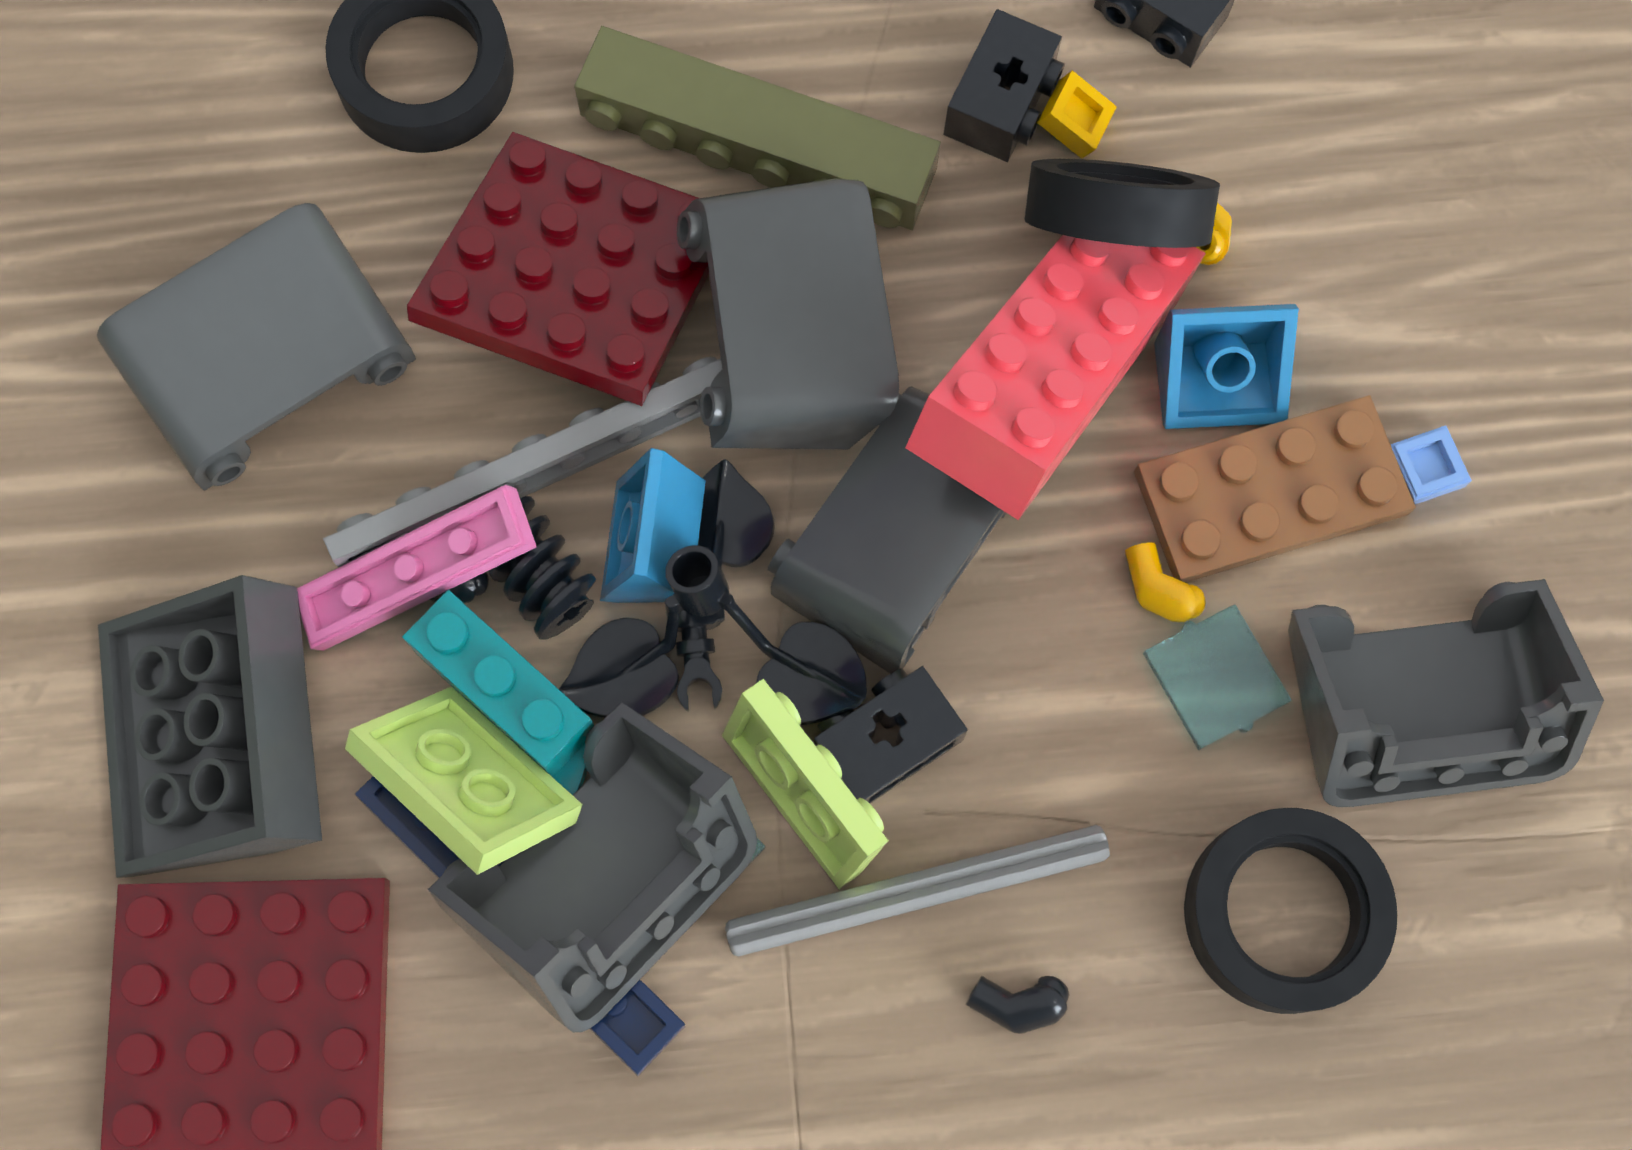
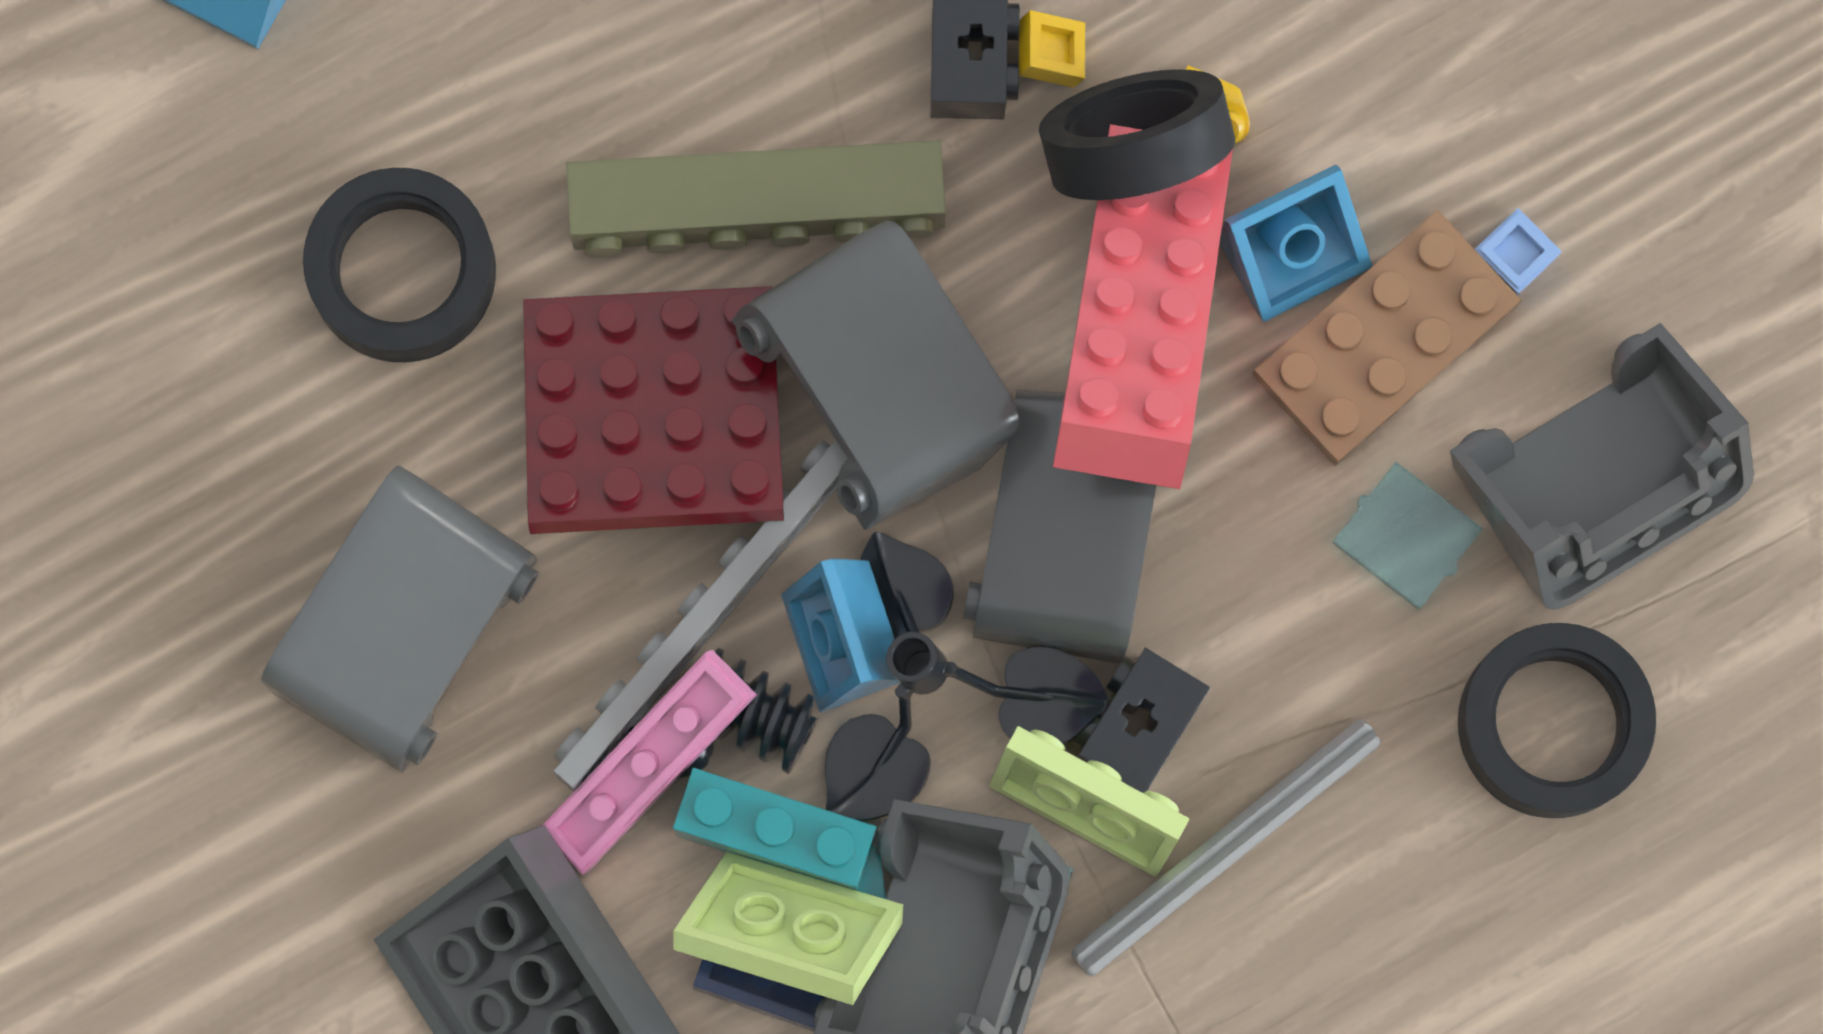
camera: 25 degrees left, 5 degrees up
(696, 649) = (936, 730): black piece -> none
(1023, 1010) = (1363, 910): black arm -> none
(1161, 592) = (1324, 480): yellow arm -> none

